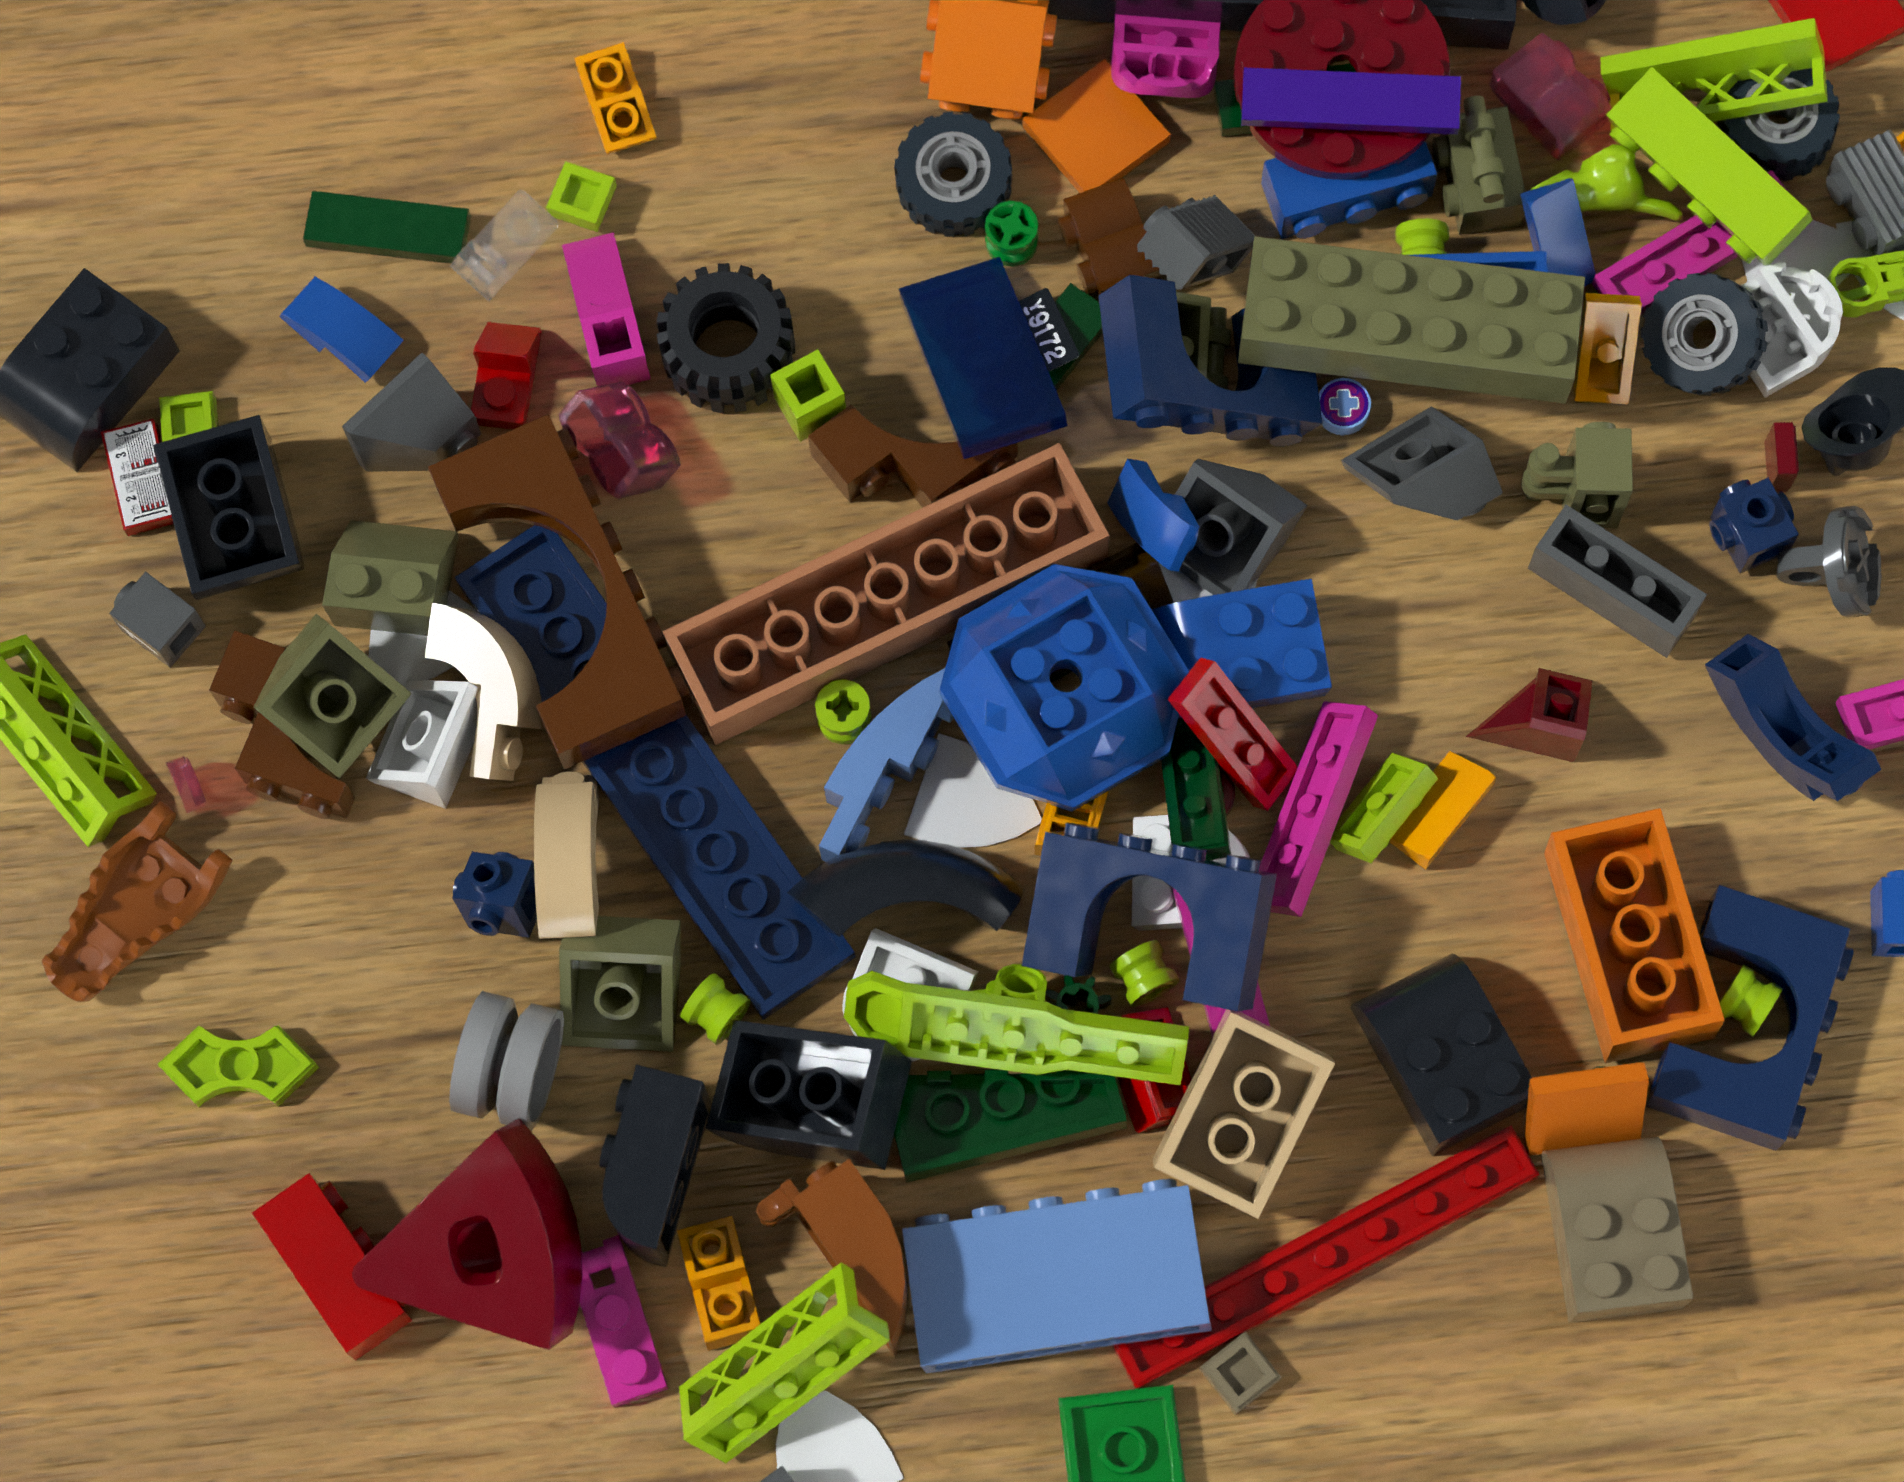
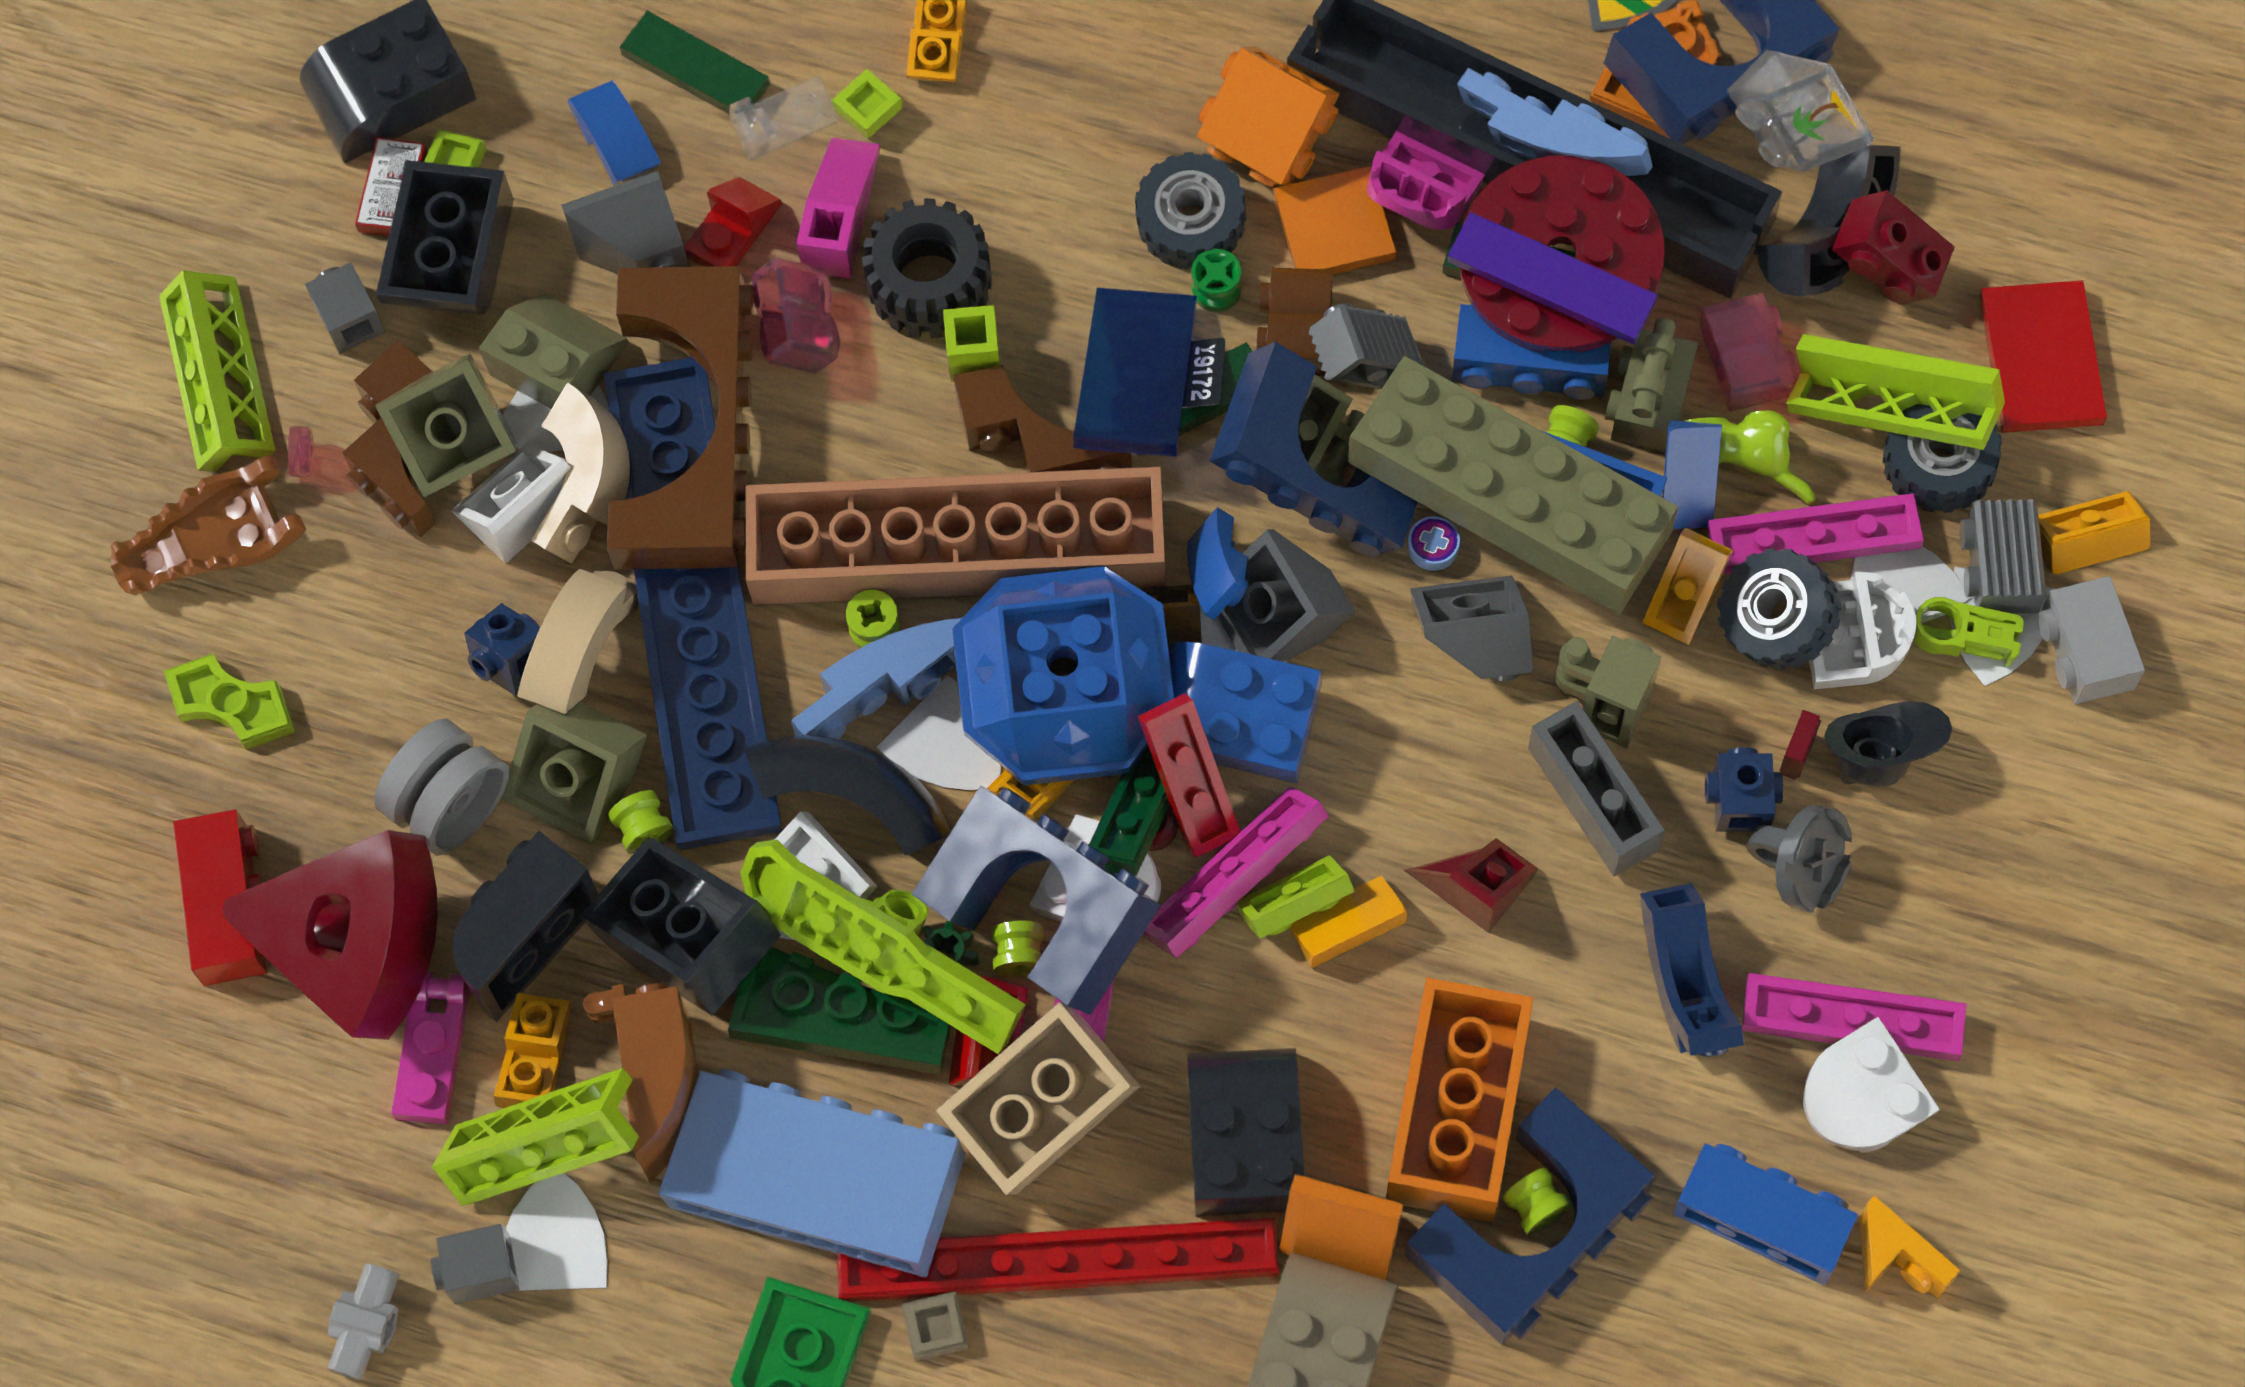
camera: 25 degrees right, 5 degrees down
(1708, 168) = (1849, 465): lime brick -> none

